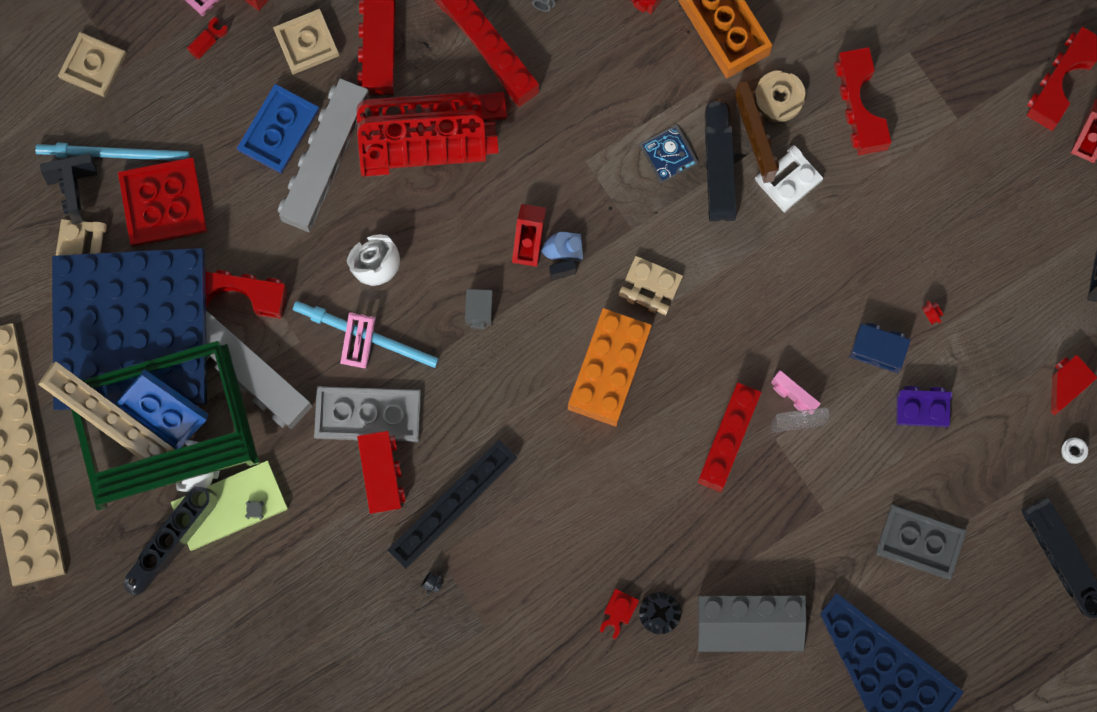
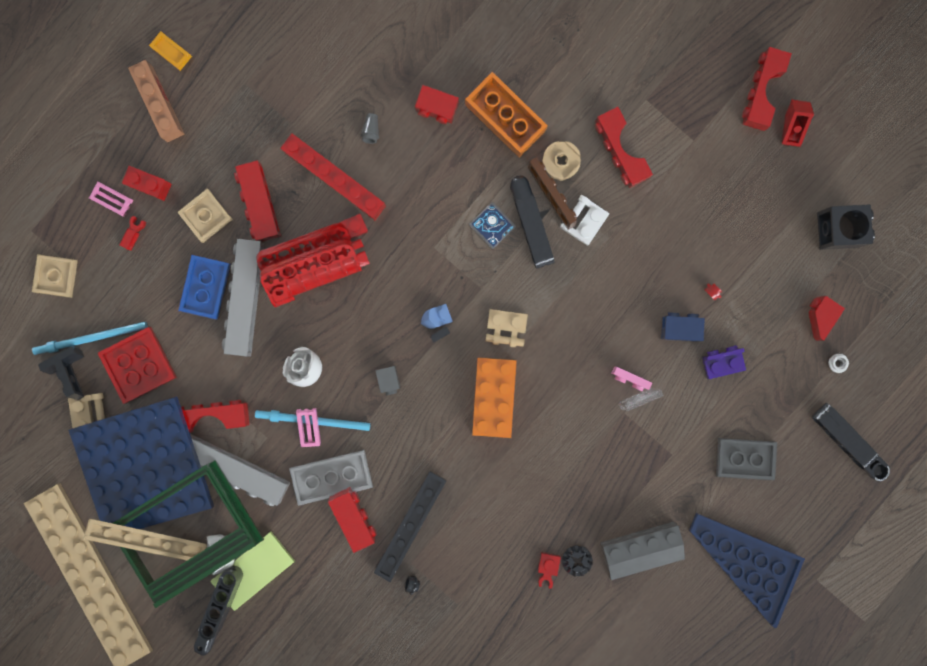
camera: 15 degrees left, 10 degrees up
(161, 409) = (181, 522): blue plate -> none
(254, 510) = (271, 571): dark grey piece -> none
(528, 235) = (408, 315): red slope -> none
(729, 437) = (593, 424): red brick -> none

